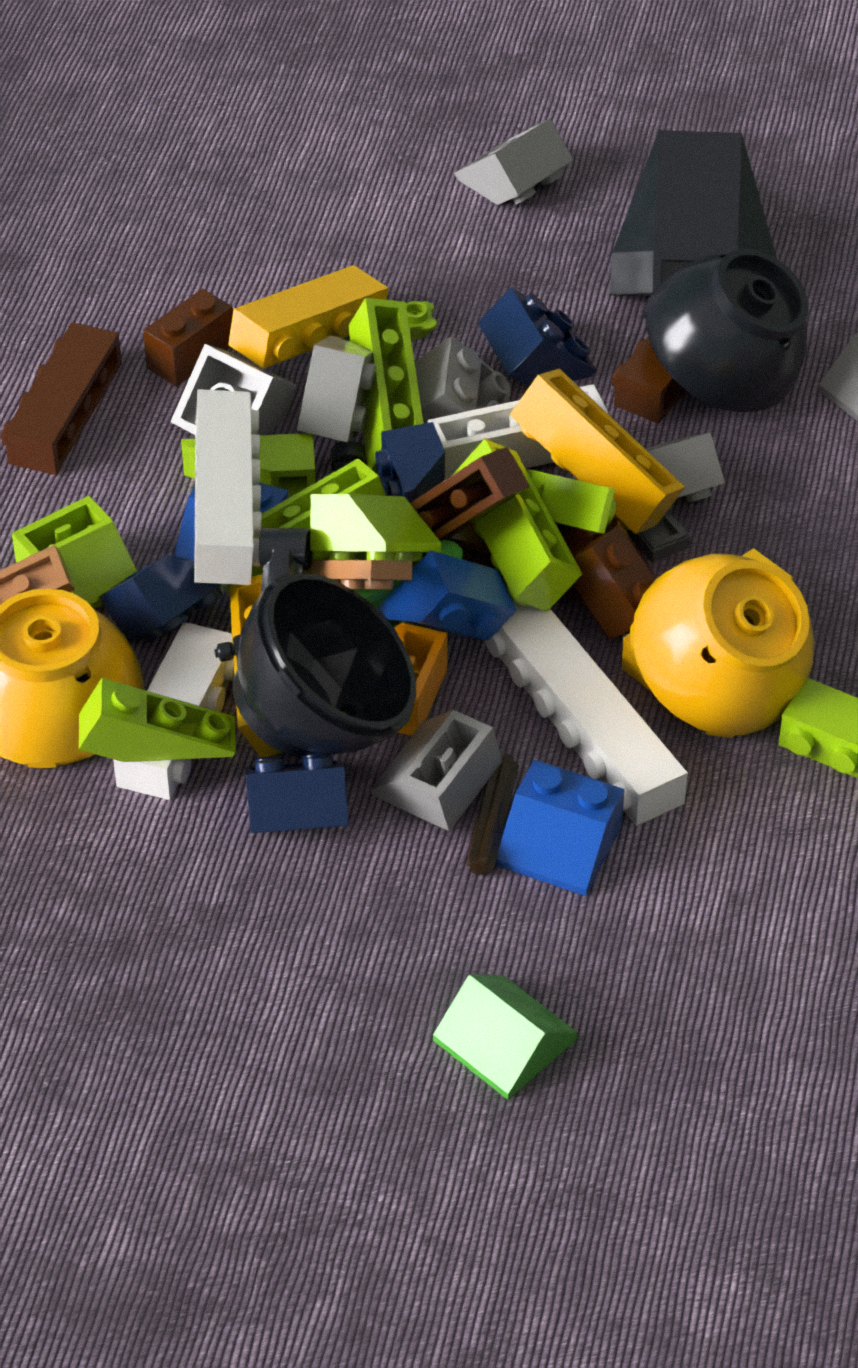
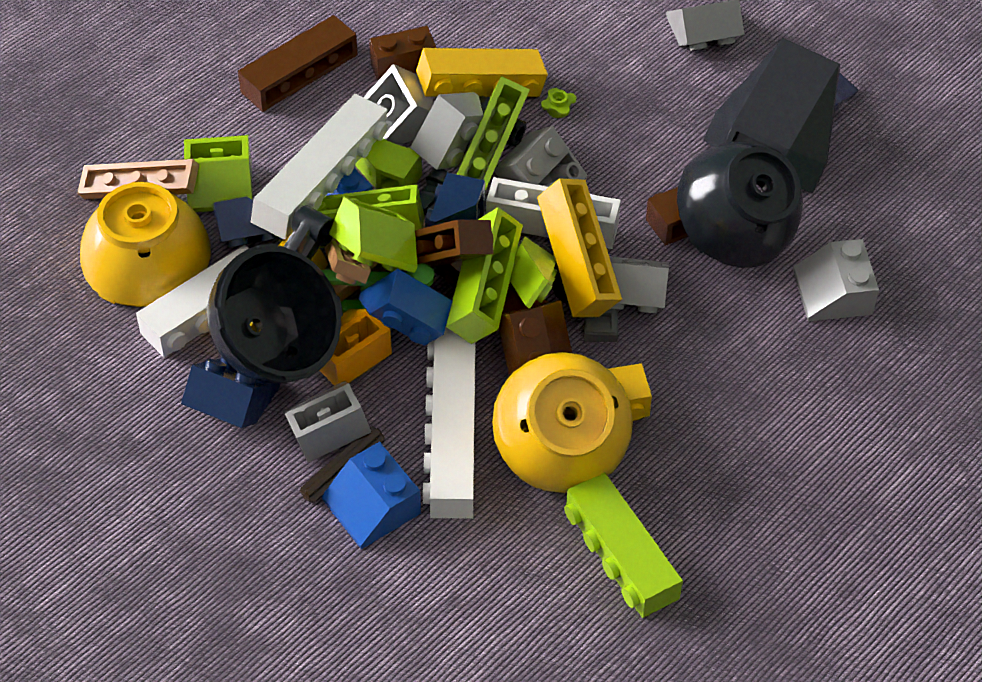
camera: 30 degrees right, 5 degrees up
(148, 726) = (162, 305): lime slope -> none
(501, 1033) = (235, 613): slope -> none
(534, 339) = (620, 153): dark blue slope -> none

